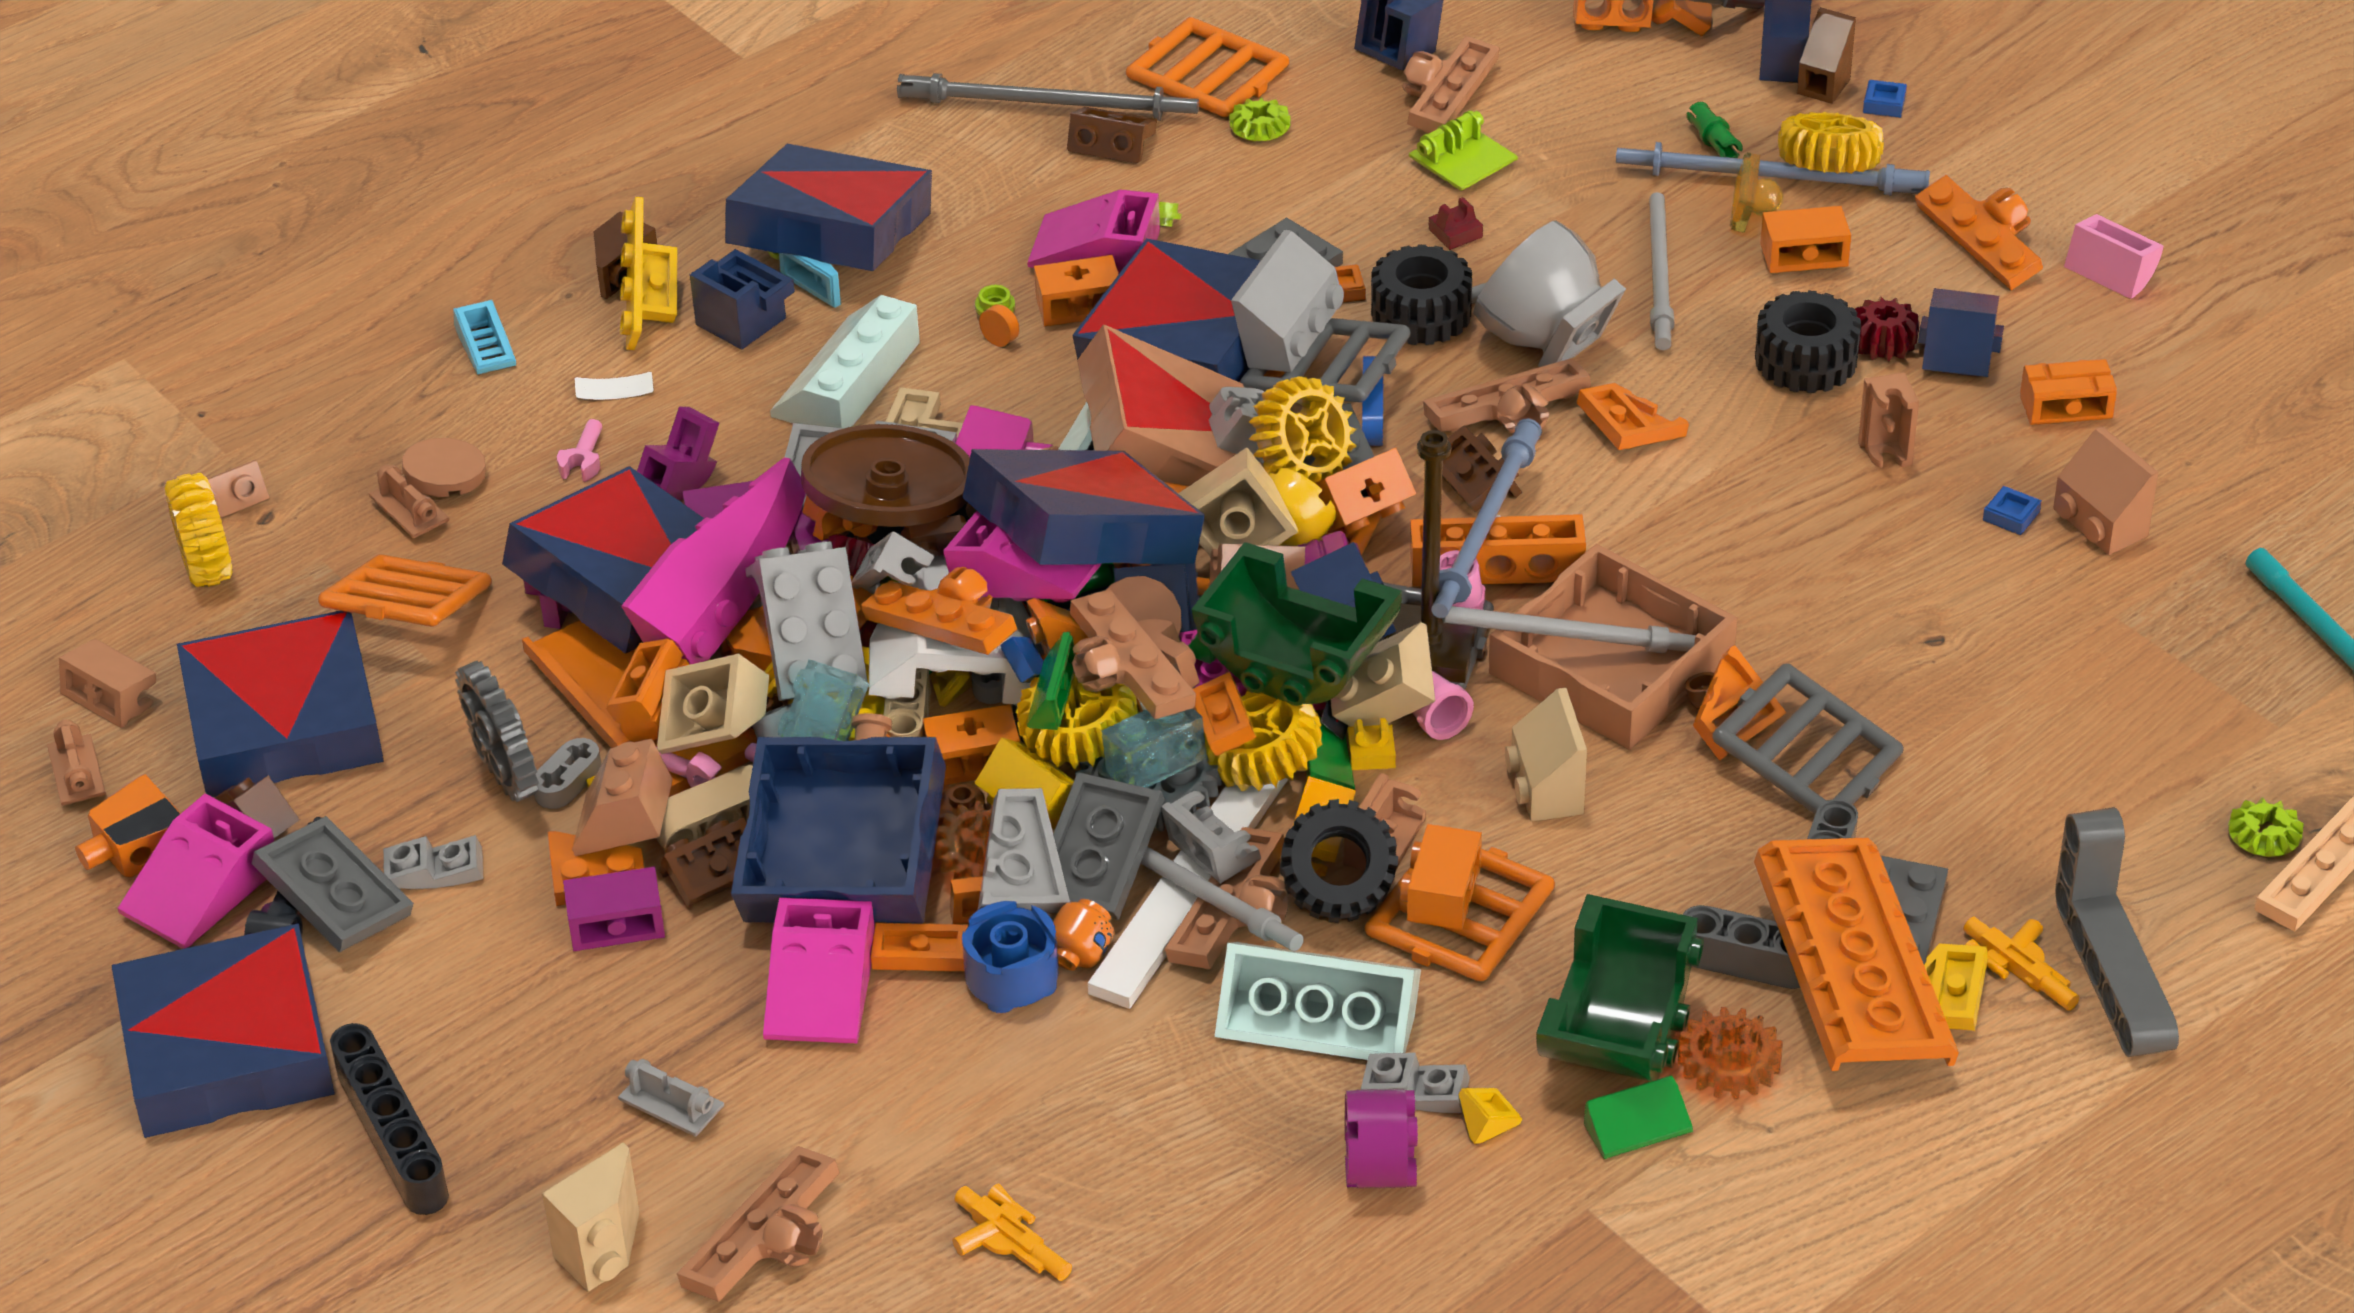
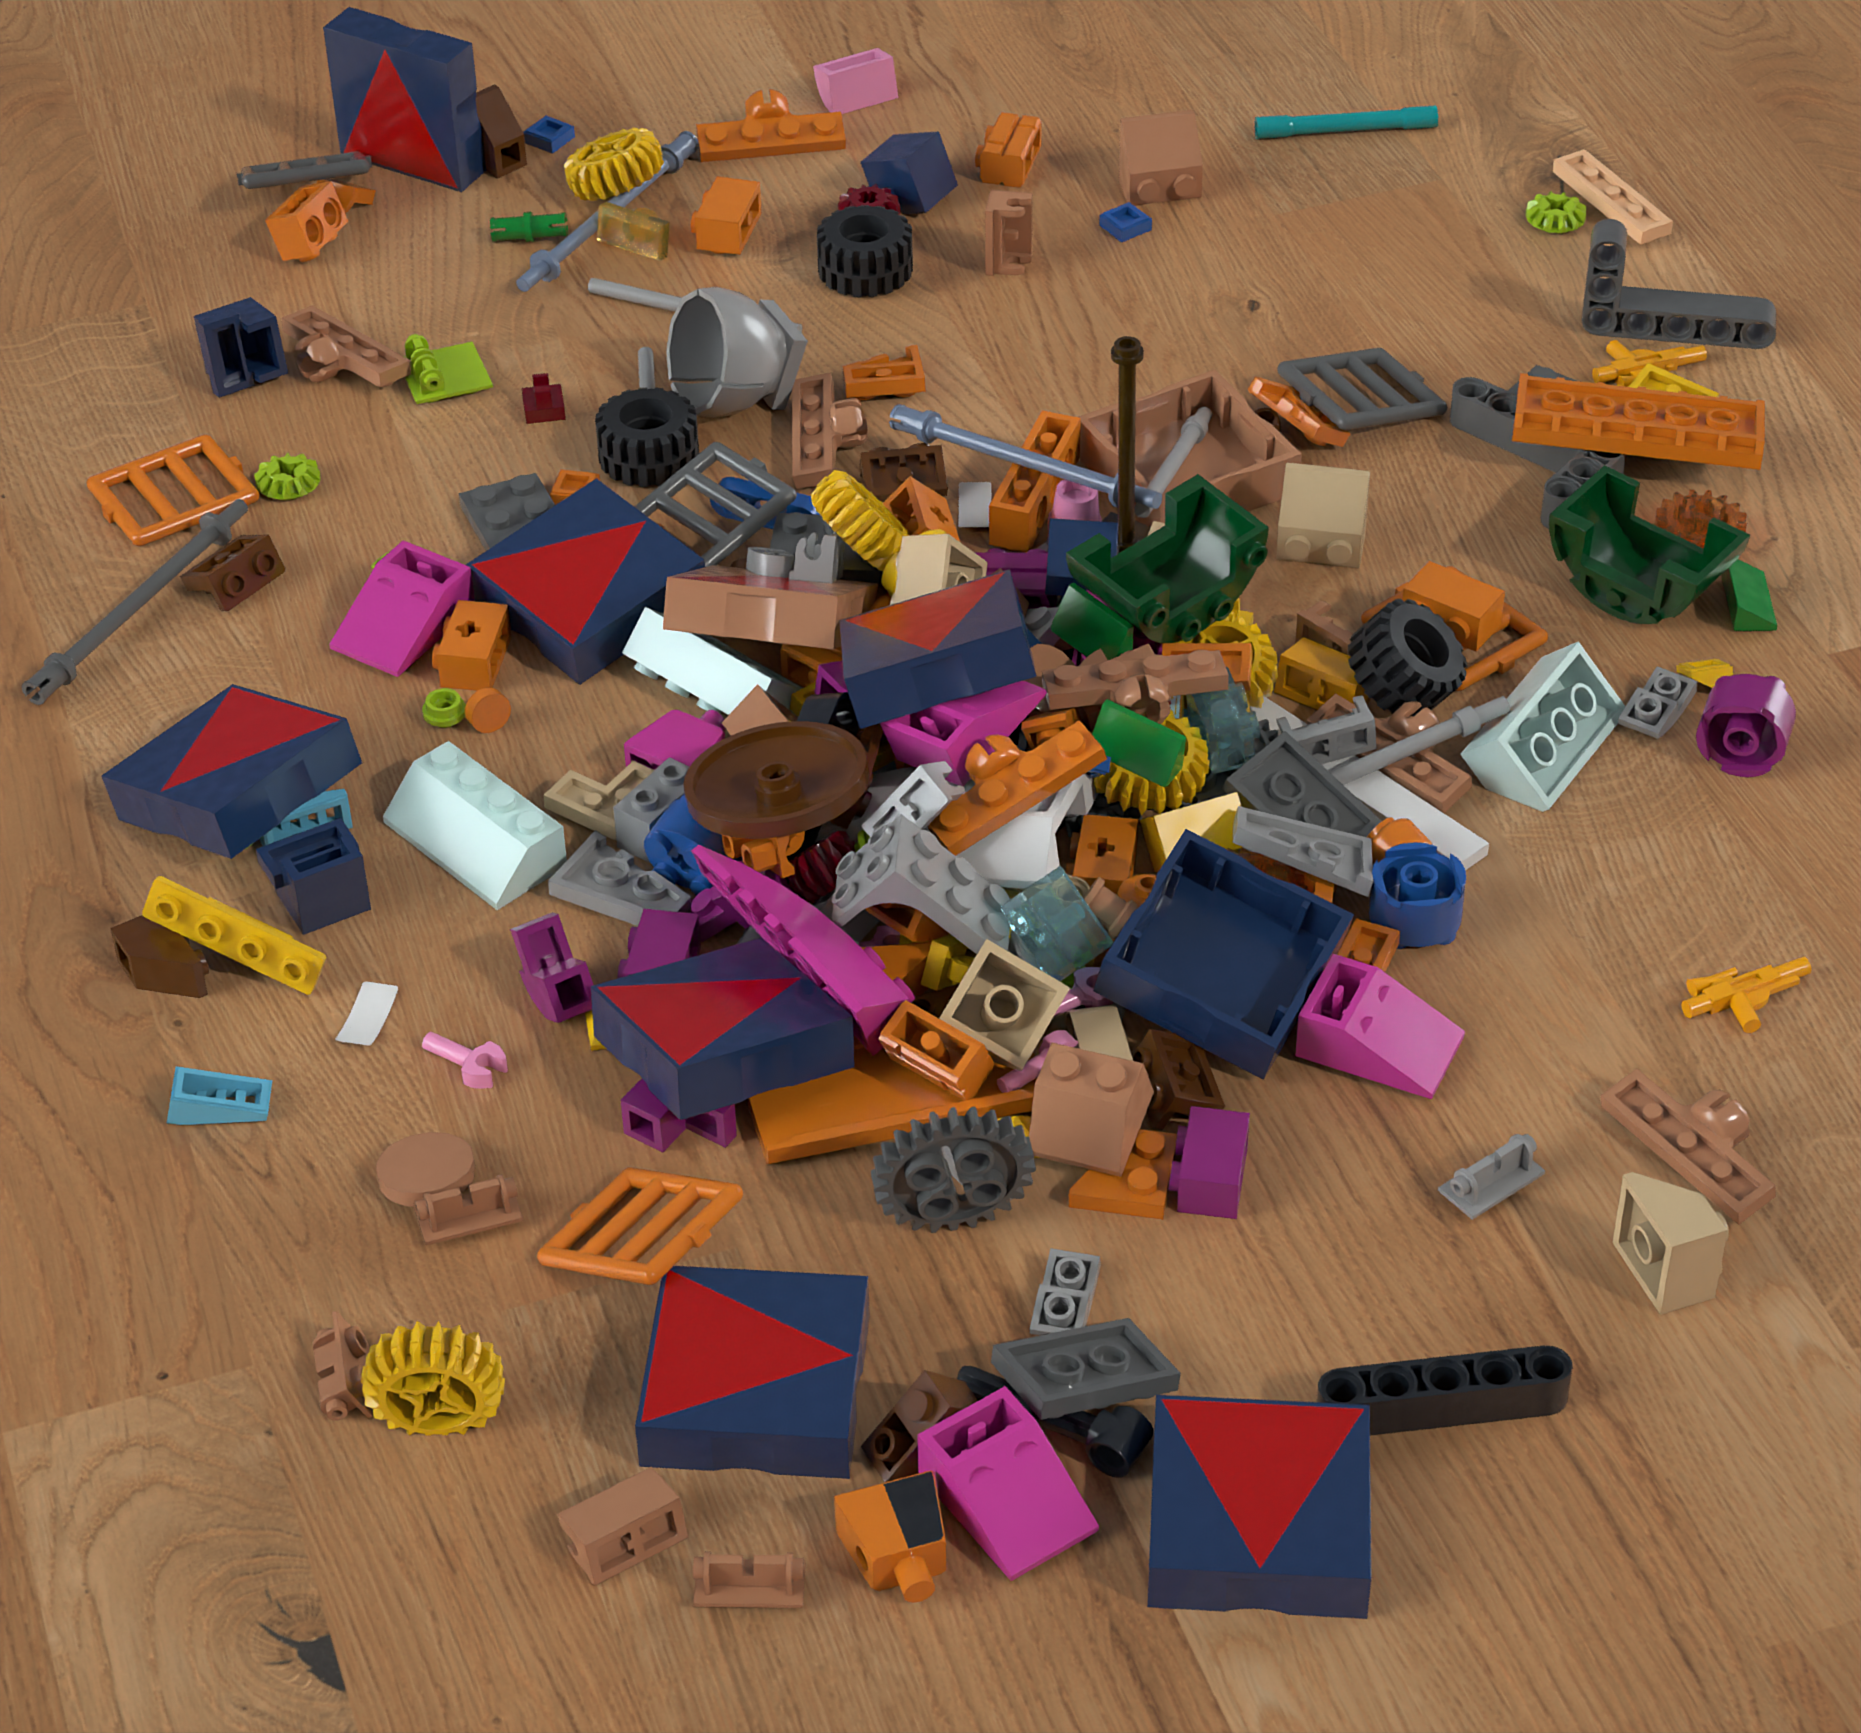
camera: 70 degrees left, 0 degrees up
(1285, 304) = (654, 492): light grey slope -> none

